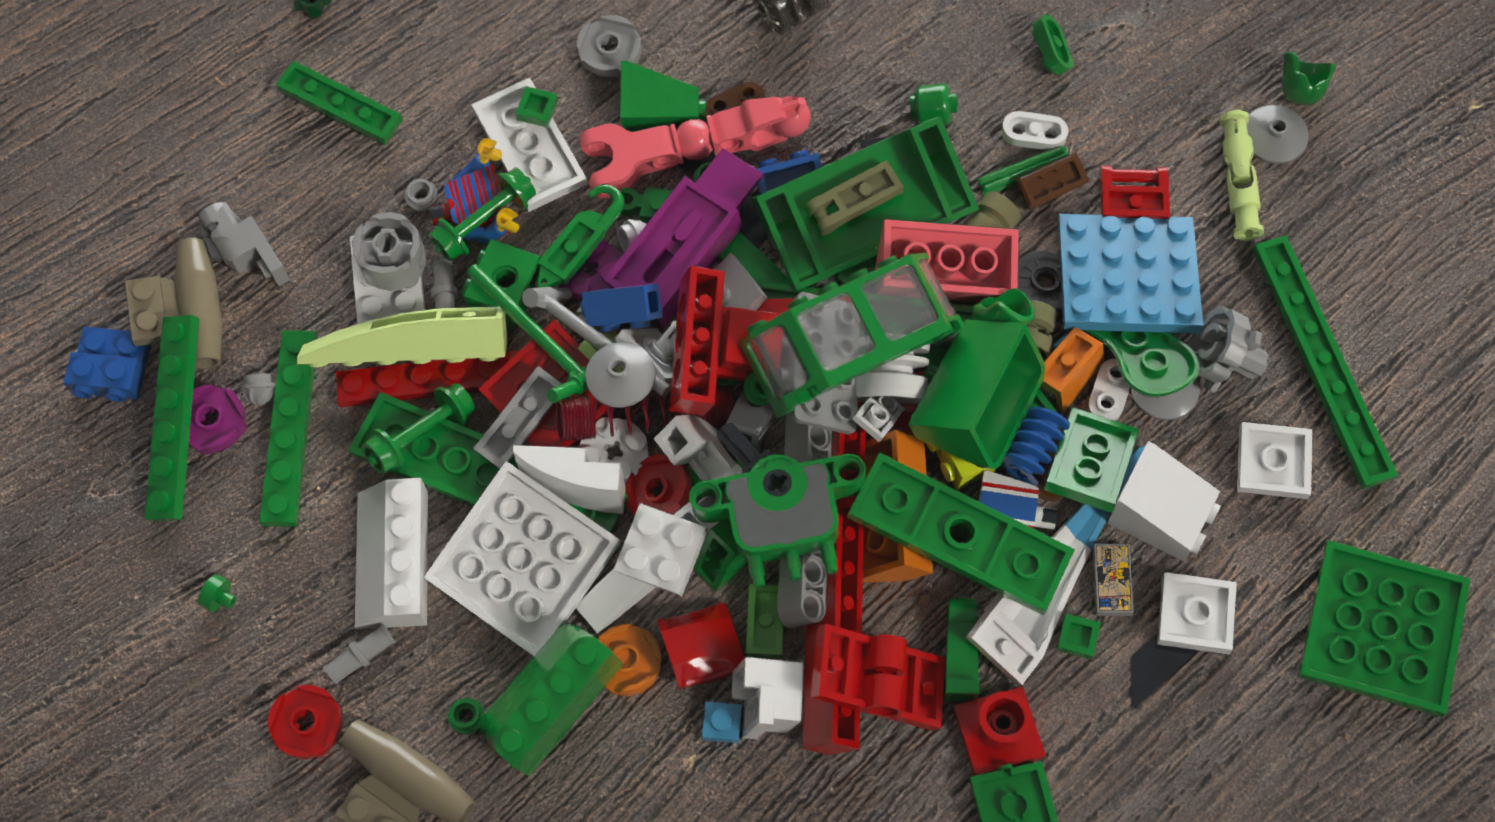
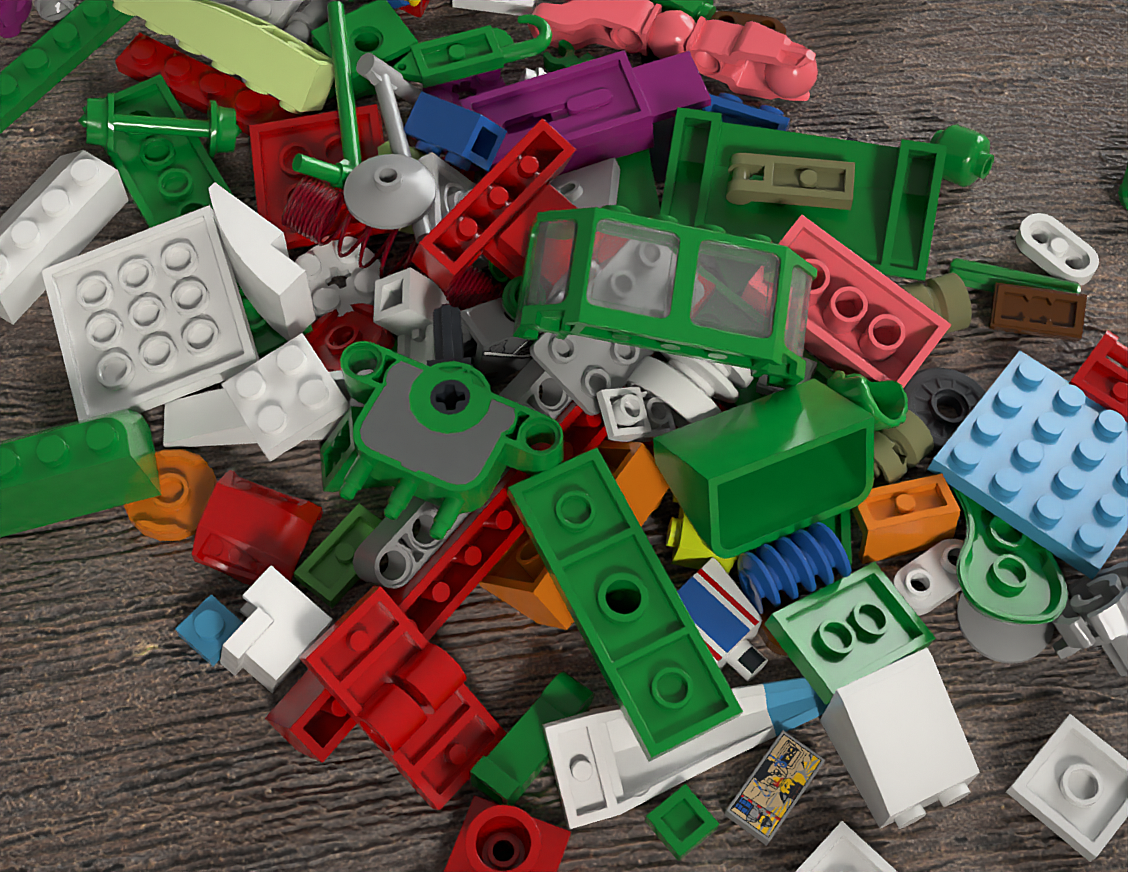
camera: 30 degrees right, 5 degrees down
(518, 419) = (260, 175): light grey plate -> none

